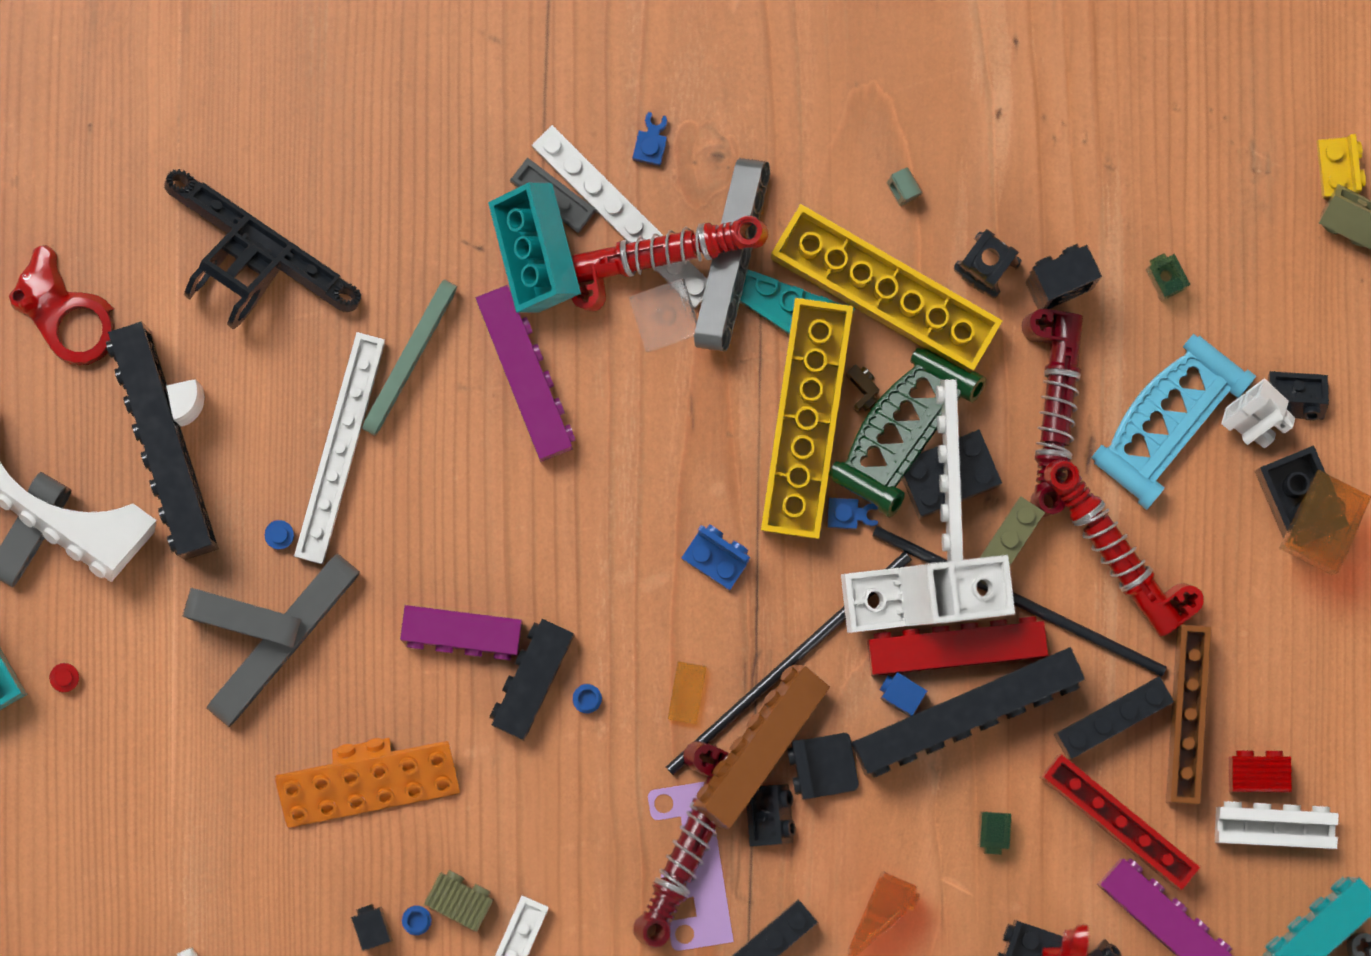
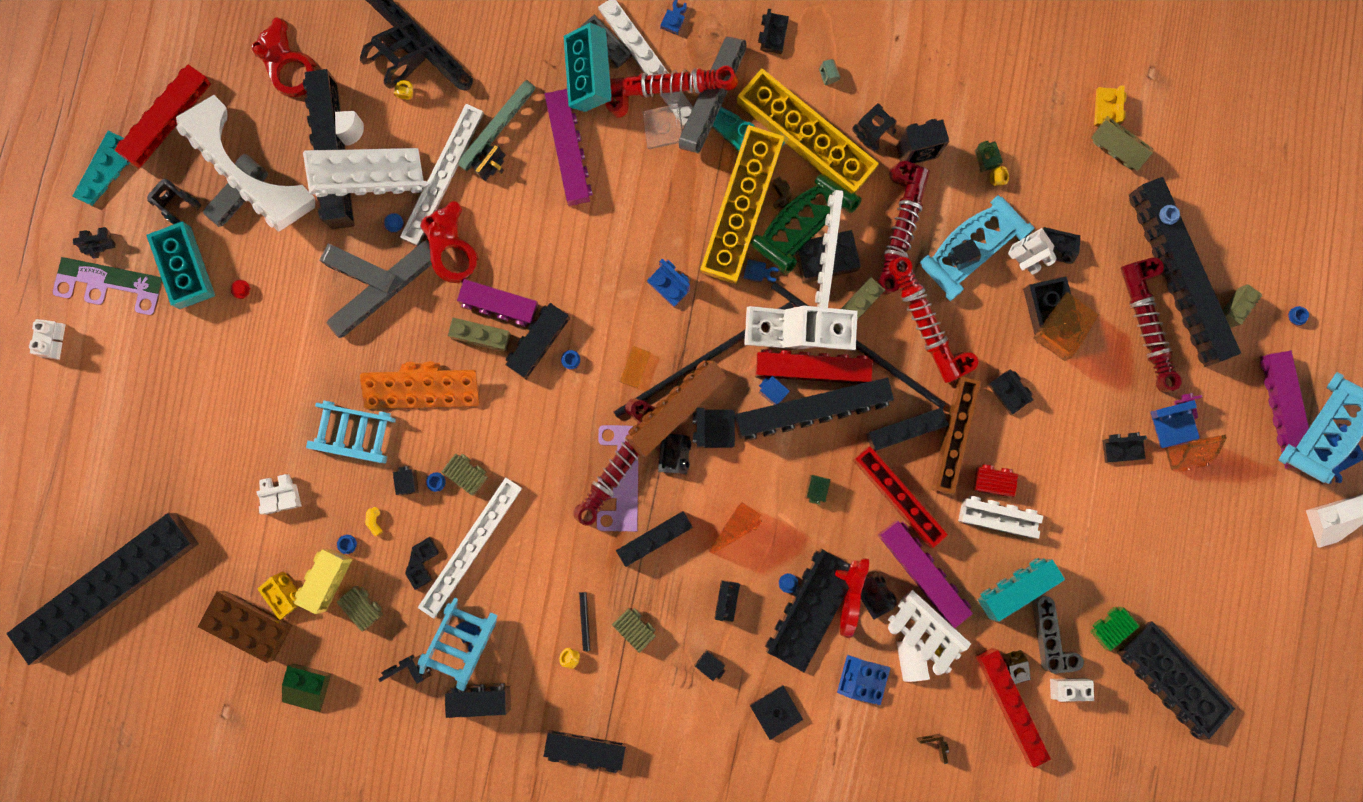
camera: 10 degrees right, 0 degrees up
(226, 468) = (363, 171): none -> white bracket
(256, 331) = (403, 92): none -> yellow tile
(289, 893) = (357, 450): none -> medium azure fence
(358, 541) = (442, 234): none -> red animal
(412, 419) = (491, 163): none -> black hips
(443, 685) = (479, 334): none -> olive brick
(808, 138) = (774, 32): none -> black bracket
(1156, 437) = (965, 254): none -> black brick
(1190, 304) = (1000, 175): none -> yellow tile
(1261, 632) = (1011, 391): none -> black bracket

